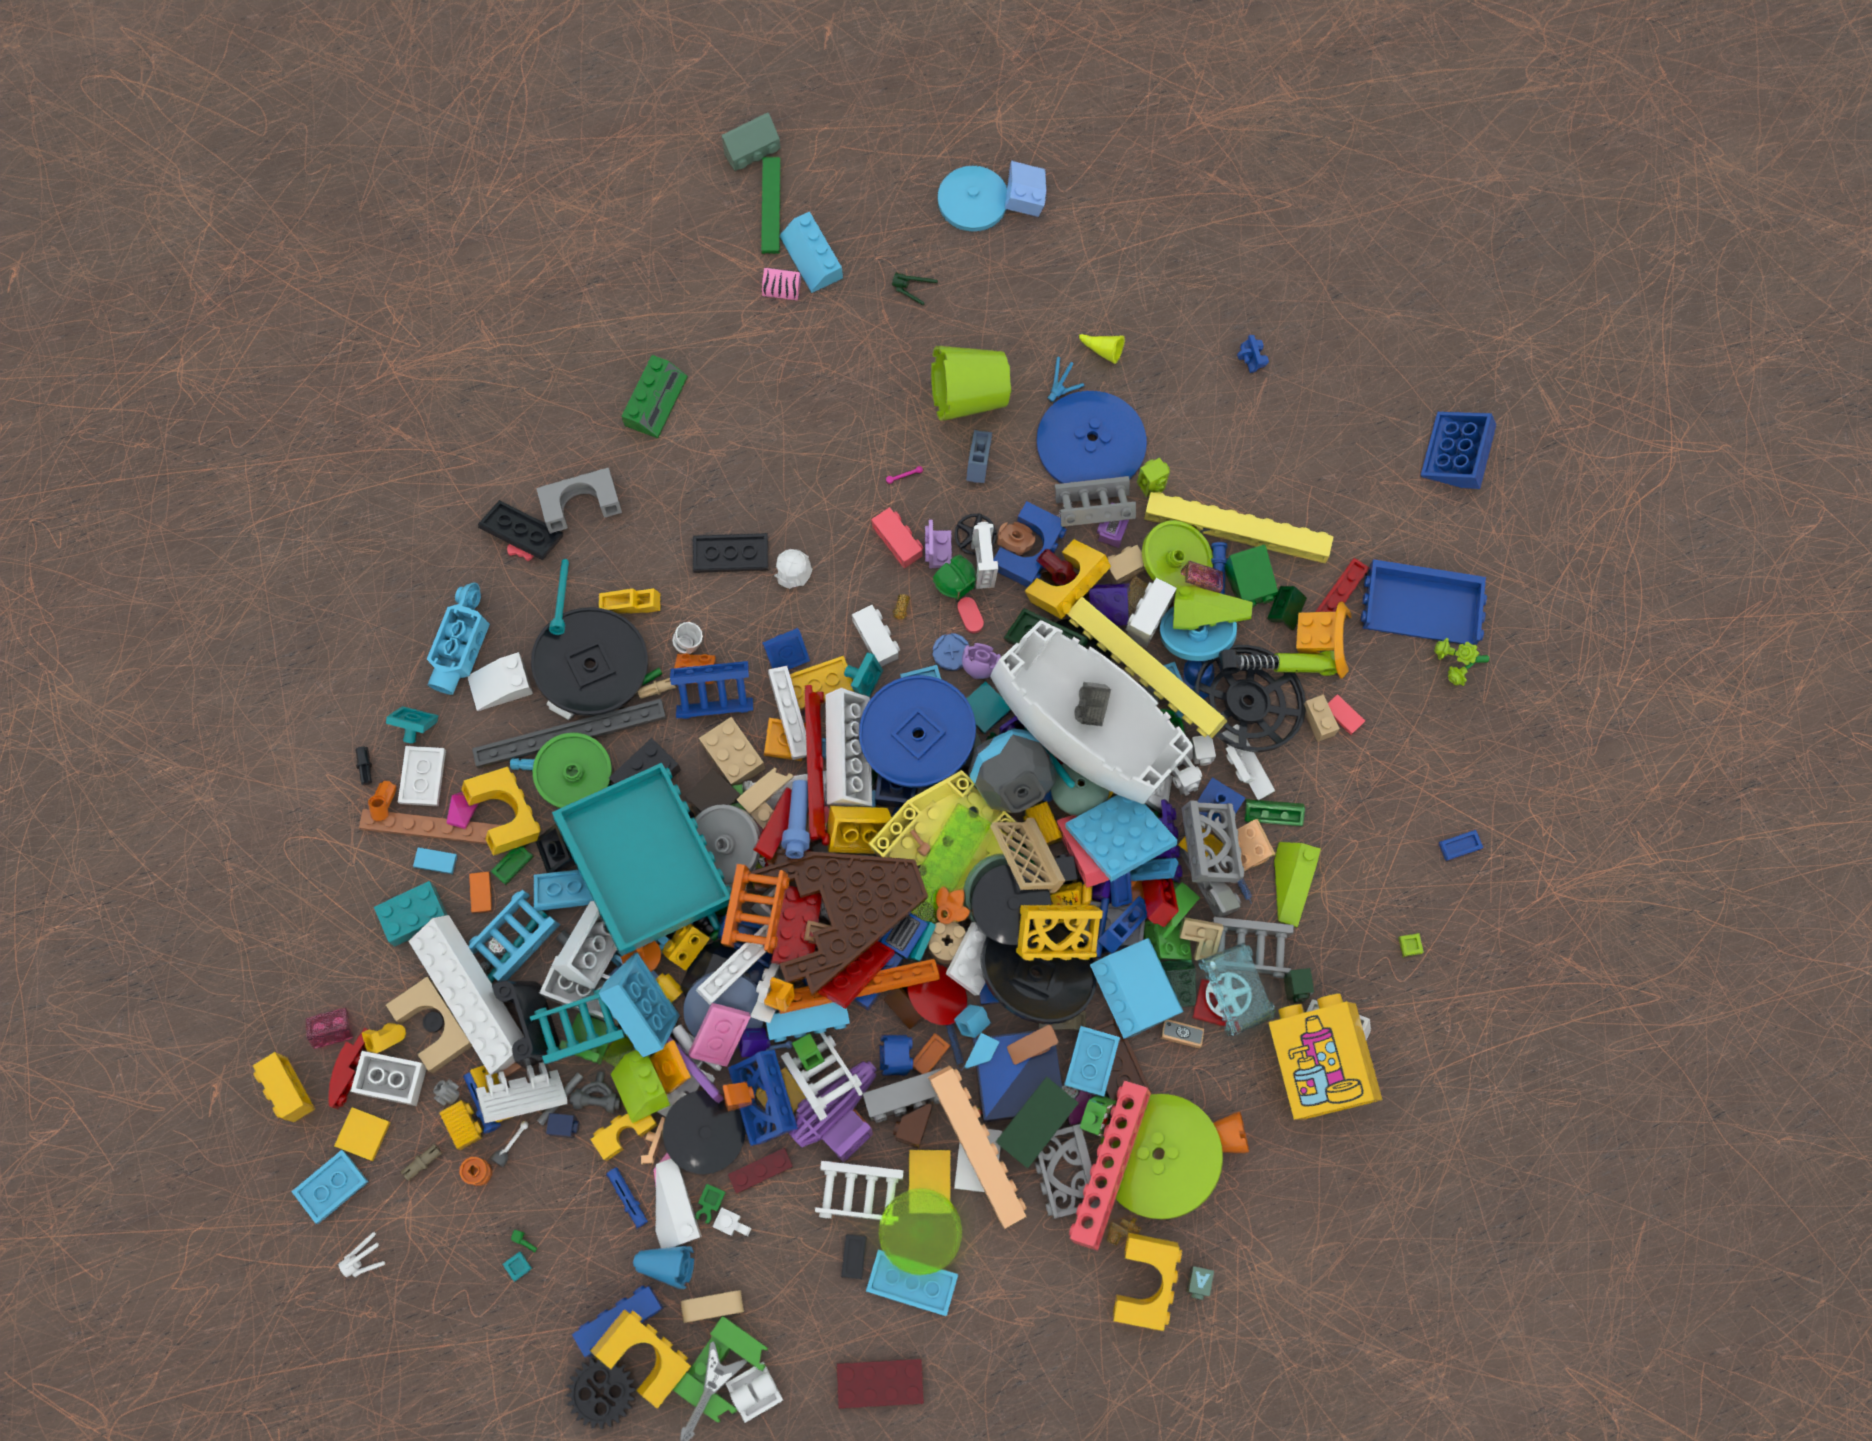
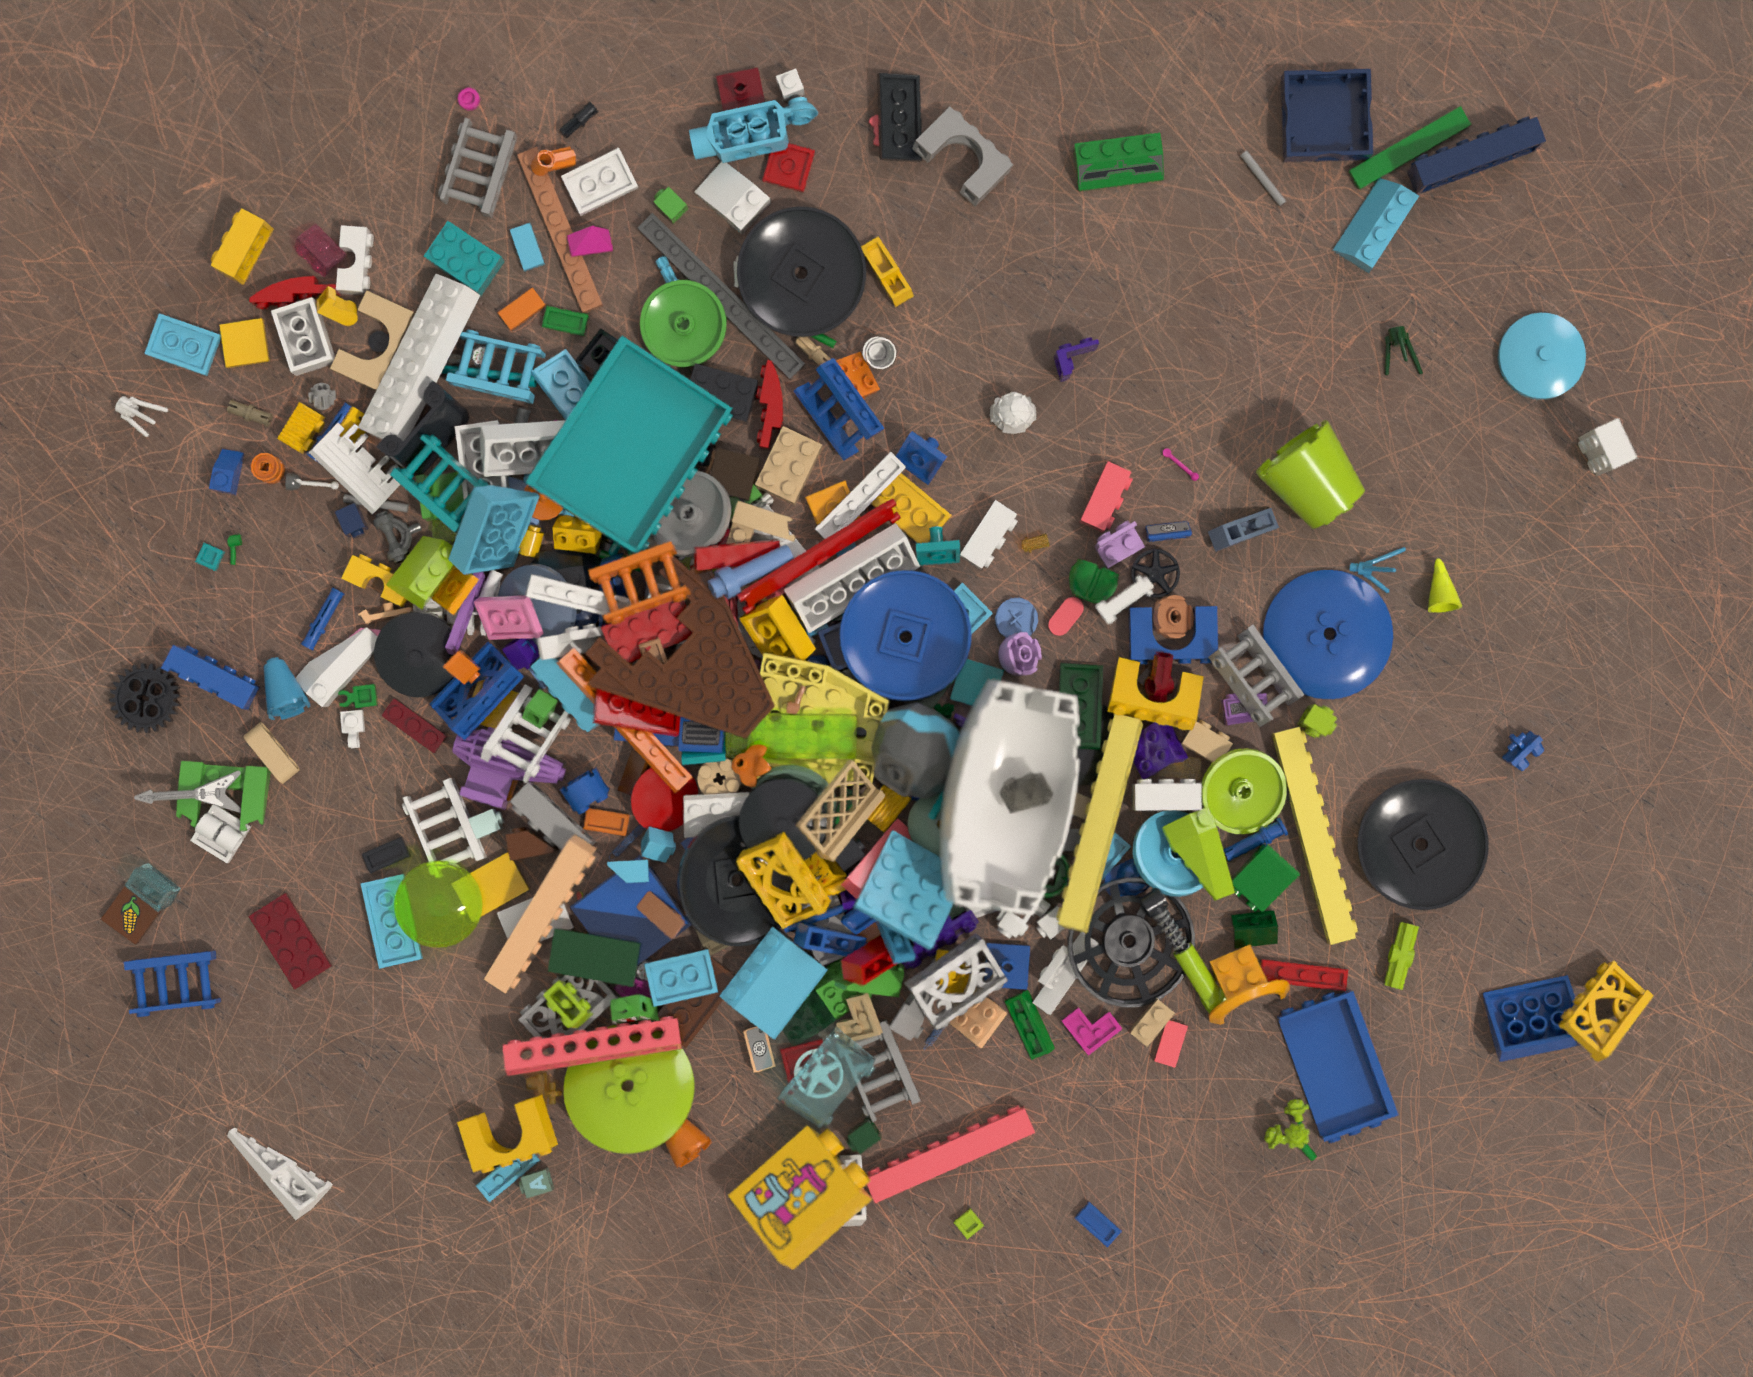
camera: 70 degrees right, 15 degrees up
(291, 841) = (469, 99): none -> dark pink tile
(367, 859) = (499, 163): none -> light grey fence
(369, 1013) = (355, 279): none -> white arch
(412, 721) = (645, 138): teal tile -> none
(421, 633) = (740, 89): none -> dark red tile
(443, 593) = (790, 85): none -> white brick
(457, 1209) = (226, 472): none -> blue slope
(474, 732) = (670, 204): none -> bright green brick
(502, 786) = (631, 265): yellow arch -> none
(505, 630) = (789, 167): none -> red tile
(557, 625) = (817, 219): teal piece -> none
(668, 1365) = (204, 694): yellow arch -> none
(672, 737) = (770, 396): none -> red slope
(712, 243) = (1326, 115): none -> dark blue tile
(730, 309) = (1263, 178): none -> light grey bar
(730, 552) = (996, 339): black tile -> none
(751, 142) = (1467, 85): sand green slope -> none
(778, 510) = (1063, 356): none -> dark purple bracket
(780, 994) = (571, 654): light orange panel -> none
(781, 284) = (1321, 214): bright pink brick -> none
(804, 161) = (1477, 155): none -> dark blue brick
(875, 1153) = (486, 823): none -> light aqua brick
(949, 509) = (1168, 531): none -> slope
(1026, 189) = (1584, 406): light blue slope -> none
(1064, 1165) = (573, 1010): none -> lime brick
(1065, 183) = (1606, 447): none -> white brick
(1180, 1310) = (503, 1177): none -> medium azure tile
(1203, 576) = (1232, 829): clear pink bracket -> none
(1293, 432) = (1454, 844): none -> black dish
(1294, 873) = (971, 1077): lime wedge -> none
(1306, 770) = (1091, 1035): none -> dark pink plate
(1347, 924) = (949, 1154): none -> coral brick
(1363, 515) = (1401, 955): none -> lime piece
(1482, 373) = (1625, 1019): none -> yellow fence

